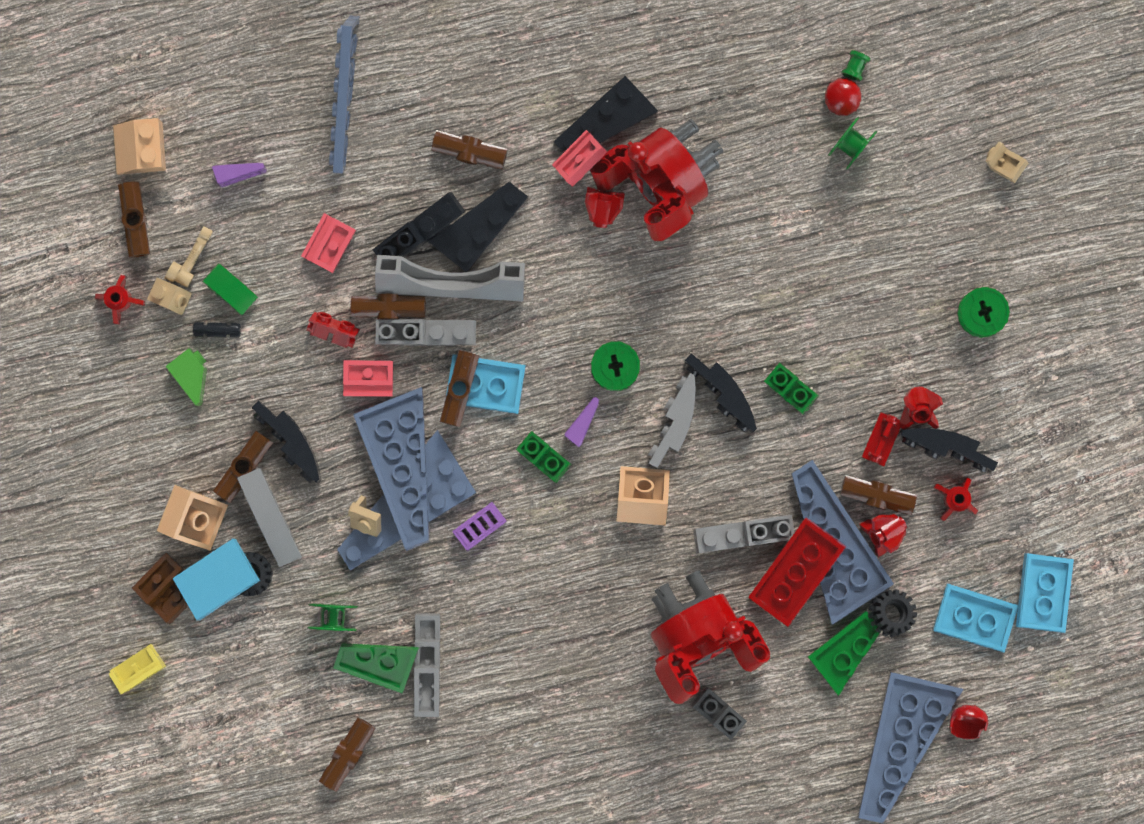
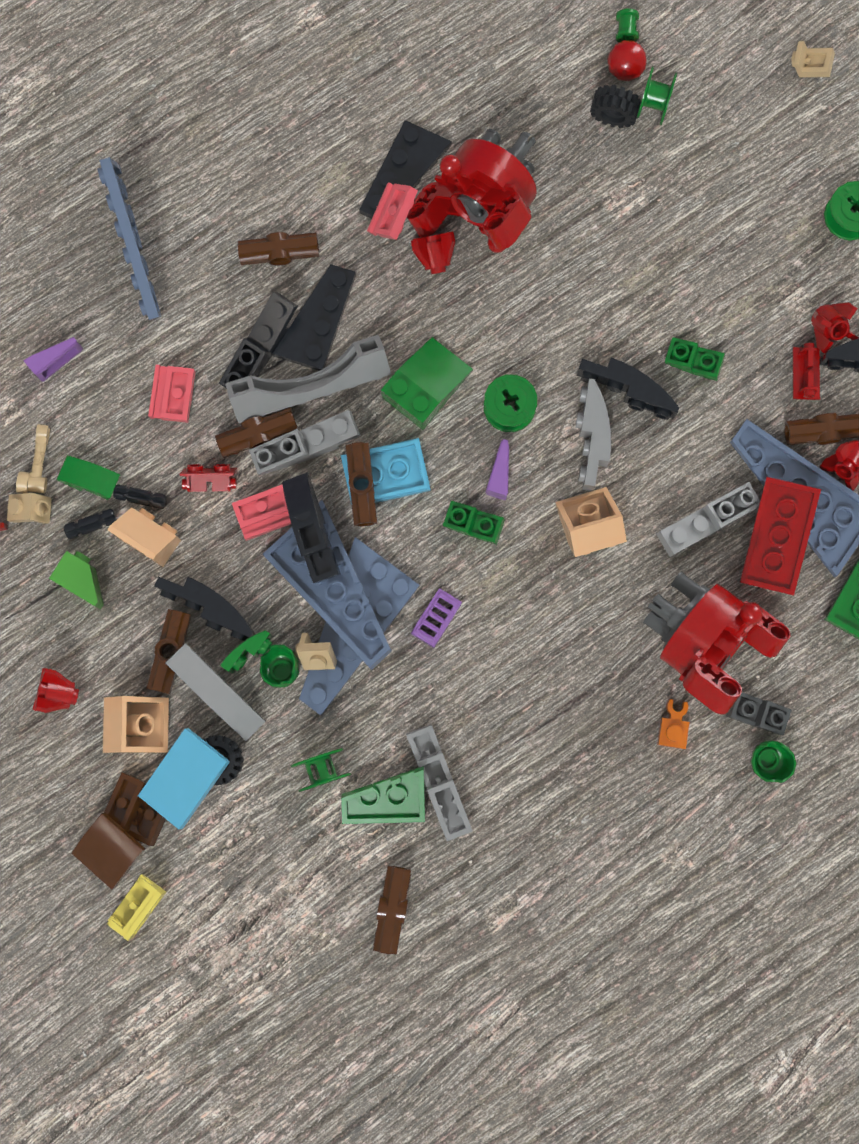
camera: 25 degrees left, 5 degrees down
(131, 613) = (108, 850): none -> reddish brown slope
(134, 464) = (54, 692): none -> red brick
(260, 360) = (145, 535): none -> light nougat slope
(267, 322) = (139, 496): none -> black axle
(316, 490) = (254, 645): none -> green slope
(331, 516) = (279, 666): none -> green hair
(400, 409) = (309, 528): none -> black slope
(551, 318) = (425, 382): none -> green slope
(641, 699) = (672, 730): none -> orange plate
(712, 758) = (773, 761): none -> green hair
(812, 138) = (615, 106): none -> black tyre

